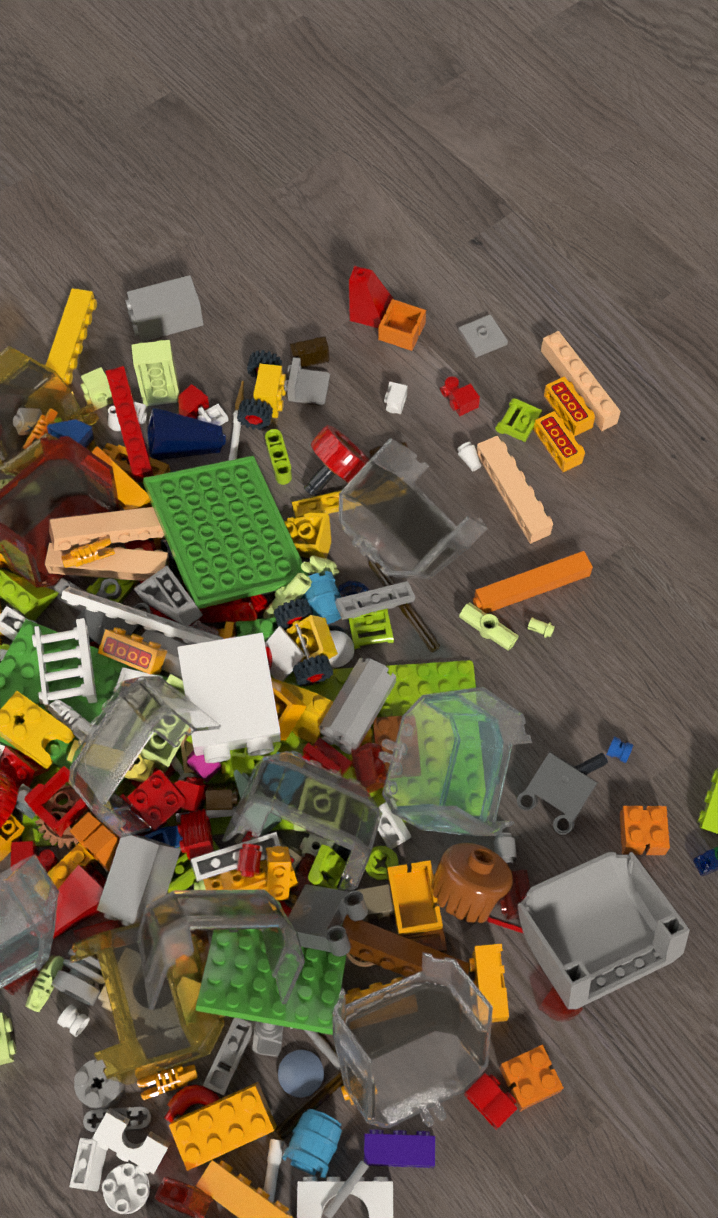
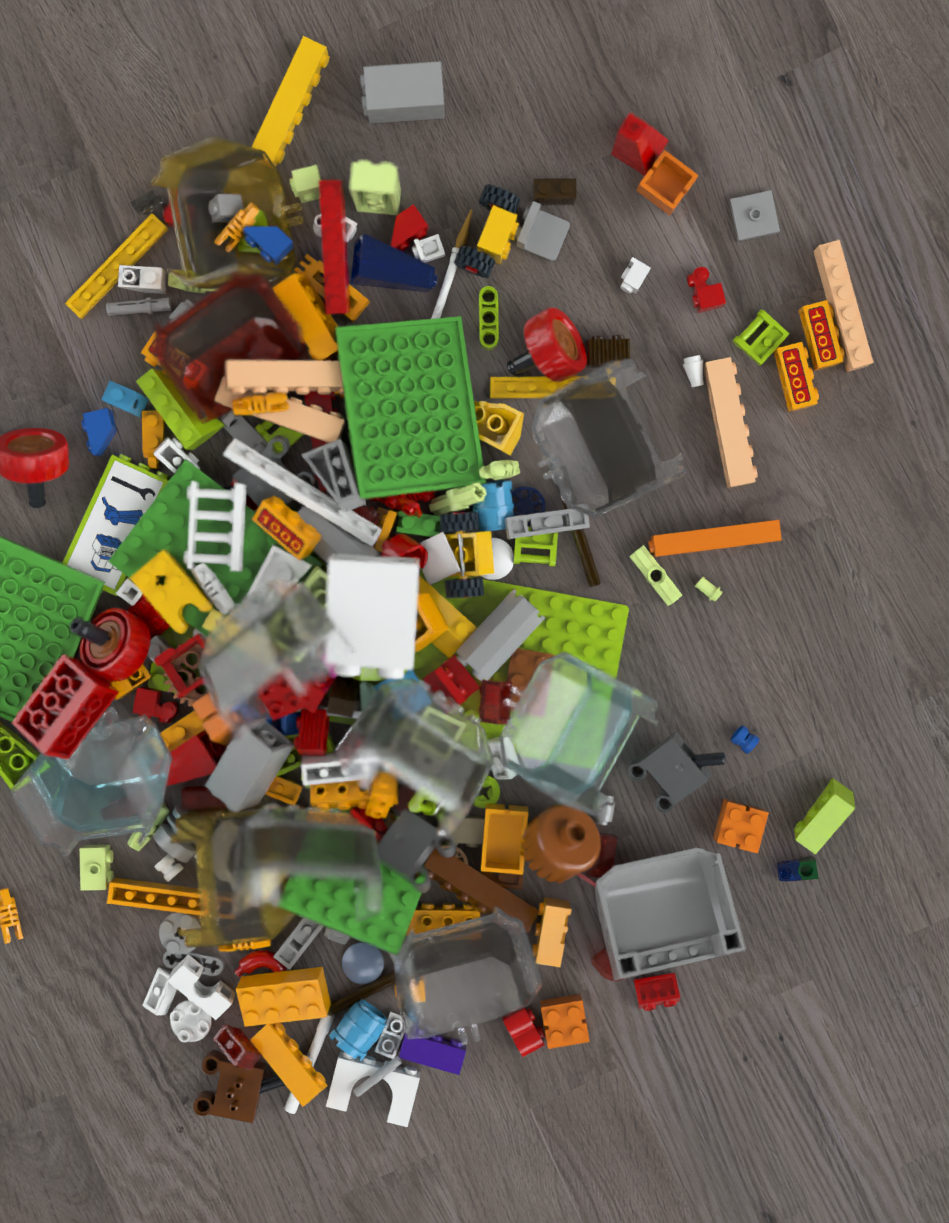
camera: 15 degrees right, 25 degrees up
(60, 1052) = (154, 896): none -> light orange brick
(249, 860) = (352, 787): red brick -> none
(350, 1146) = (391, 1036): none -> white slope
(618, 1022) = (657, 991): none -> red bracket

